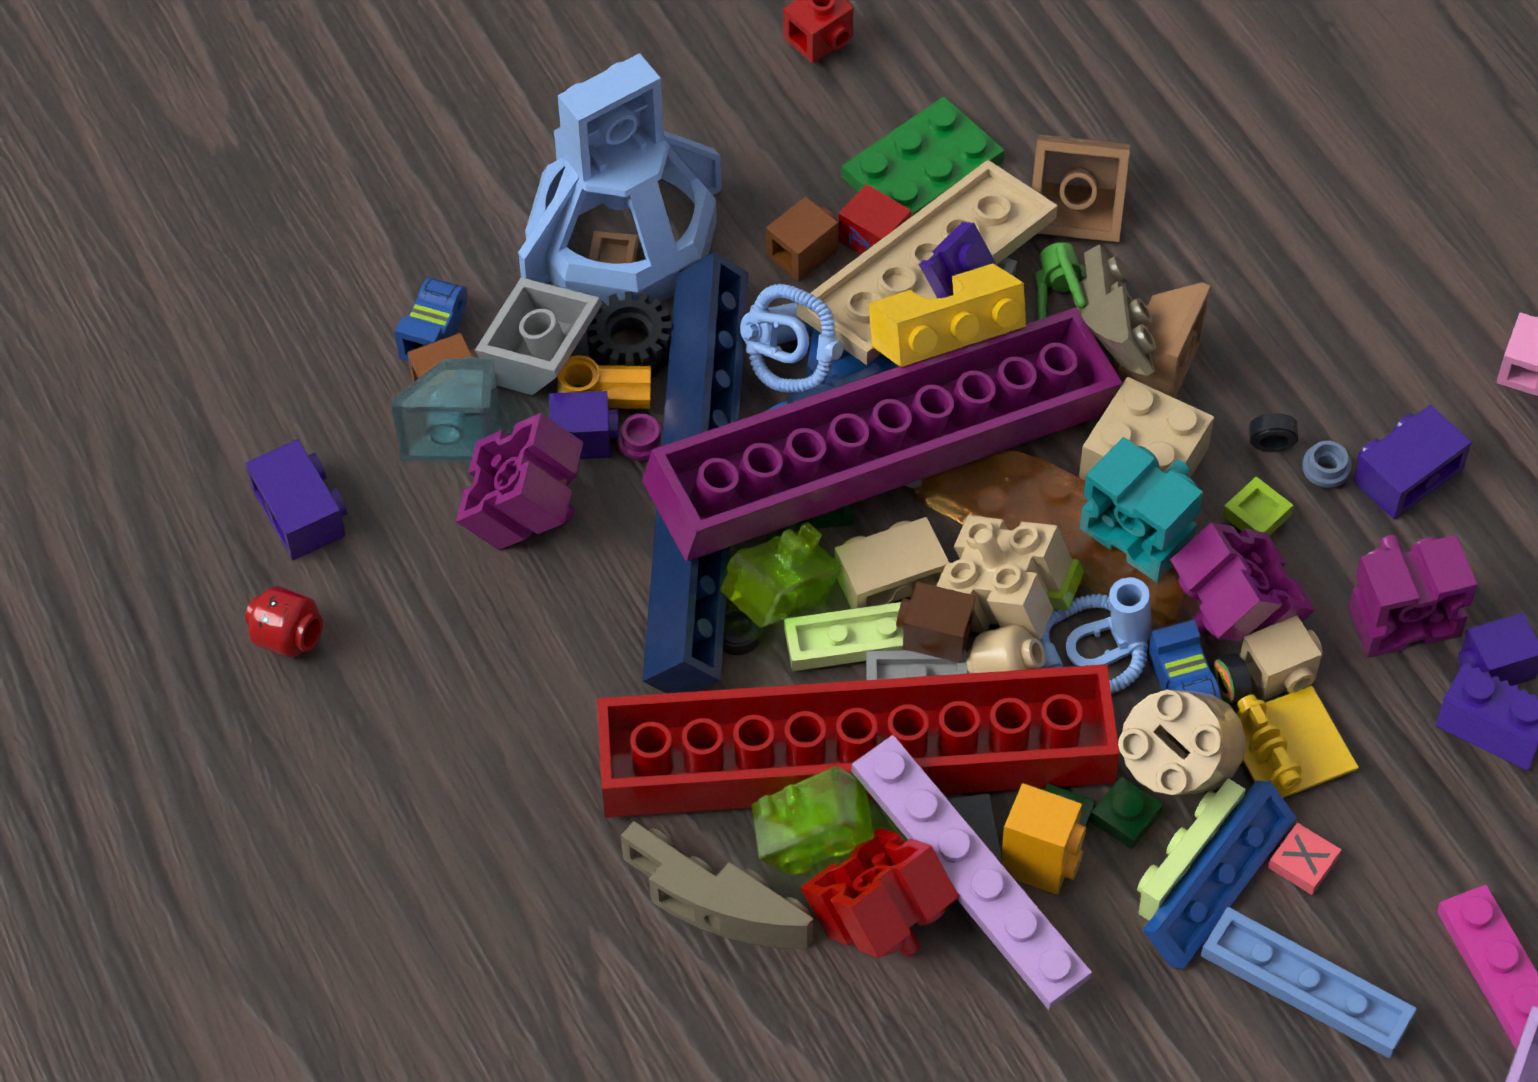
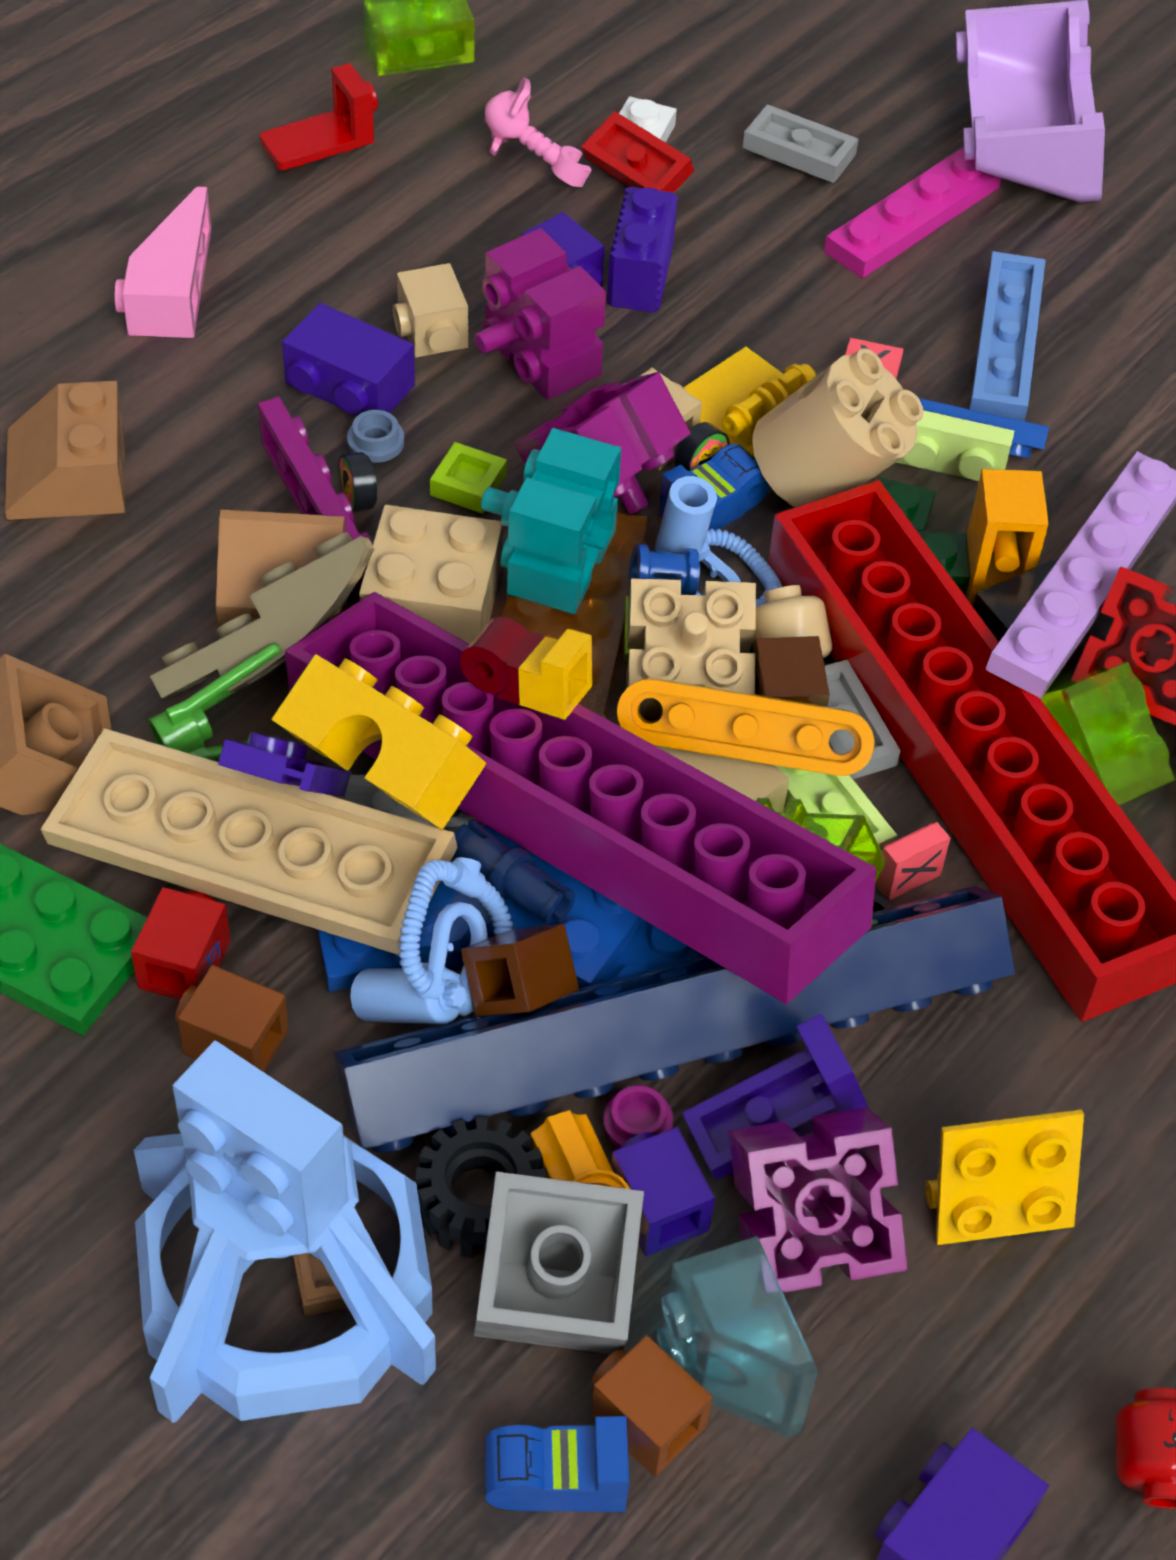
camera: 115 degrees left, 5 degrees down
(496, 608) = (1007, 1177): none -> yellow hinge
(604, 515) = (791, 1091): none -> dark purple bracket
(754, 373) = (520, 970): none -> reddish brown brick
(768, 659) = (913, 860): none -> coral tile
(898, 564) = (746, 726): none -> light orange plate
(976, 415) = (530, 666): none -> leg
(1091, 589) = (682, 566): none -> blue bush
(1297, 396) = (303, 473): none -> magenta plate
(1361, 265) = (68, 454): none -> medium nougat slope
(1474, 528) = (431, 310): none -> tan brick

